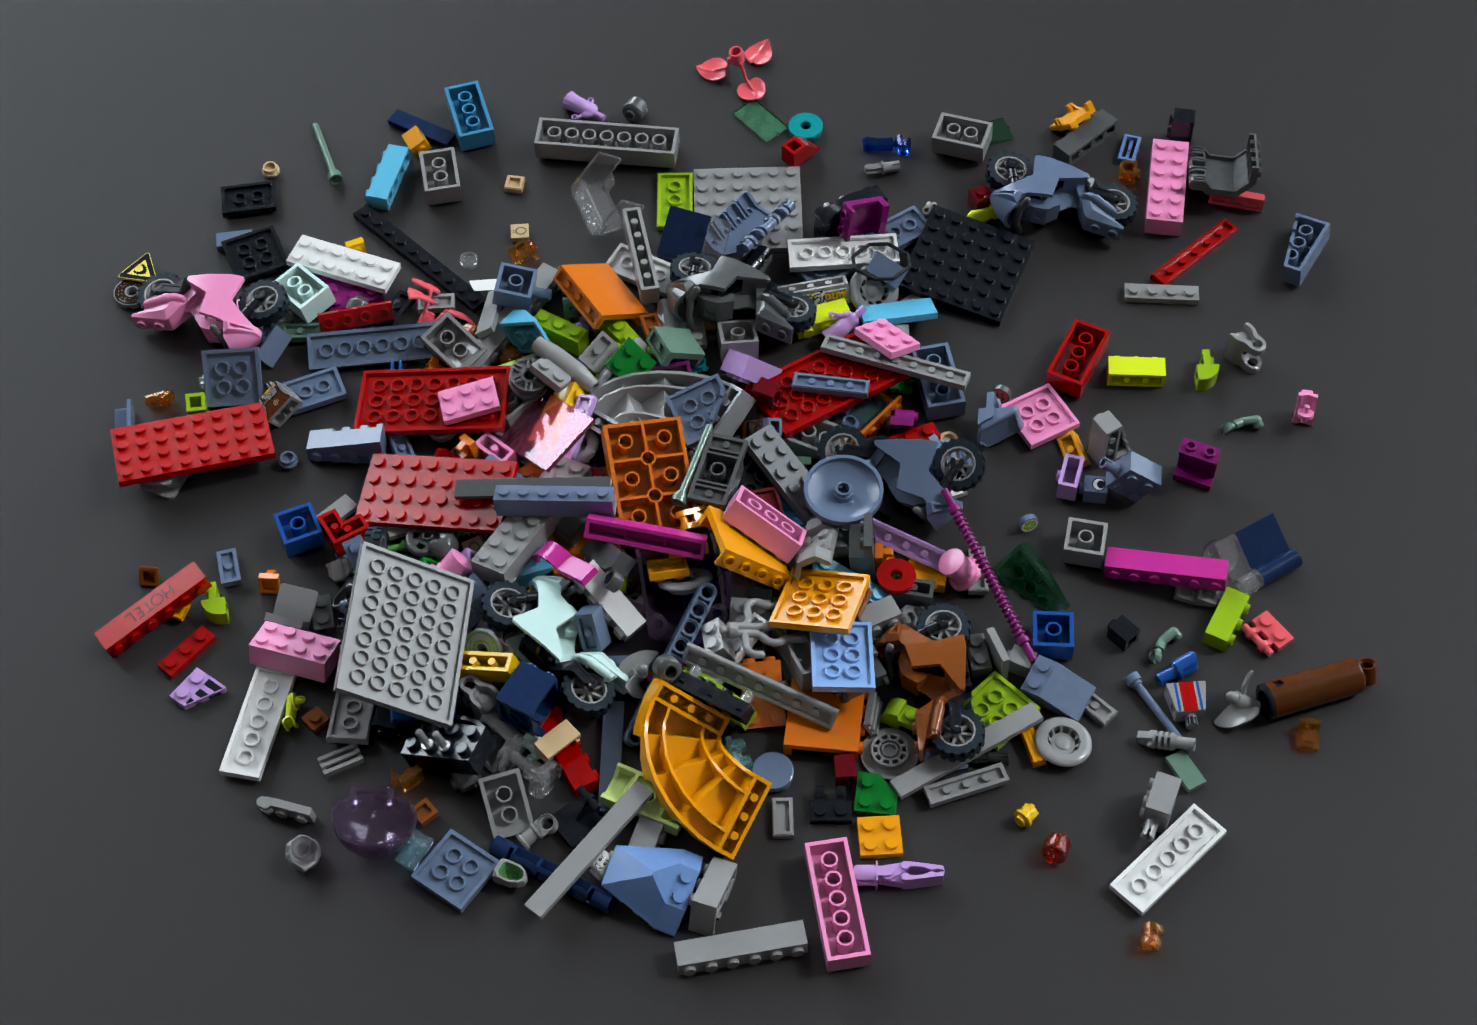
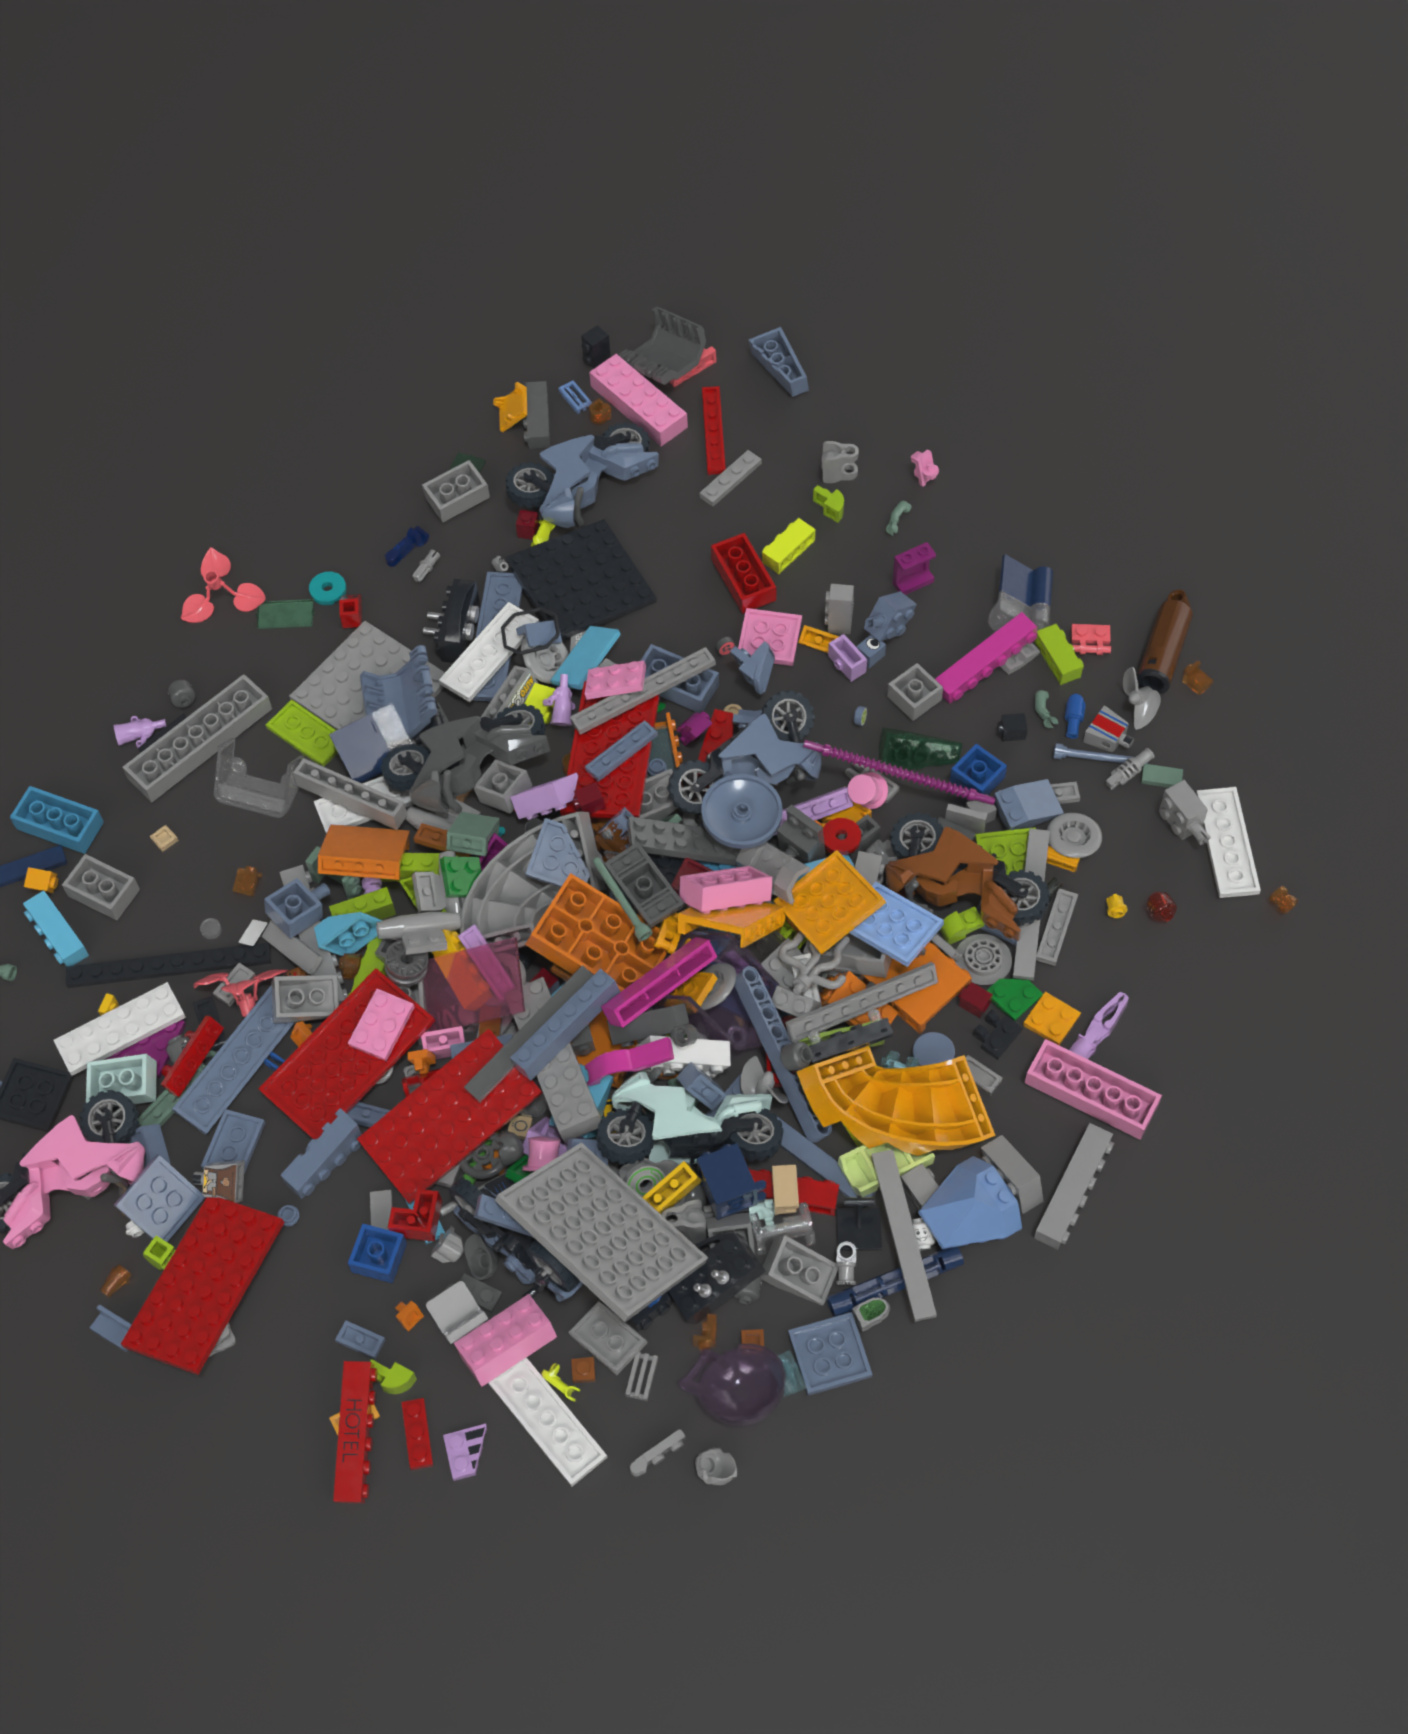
camera: 50 degrees left, 5 degrees up
(149, 576) = (307, 1414): dark orange slope -> none
(519, 231) = (221, 869): tan tile -> none
(863, 217) = (476, 608): magenta panel -> none

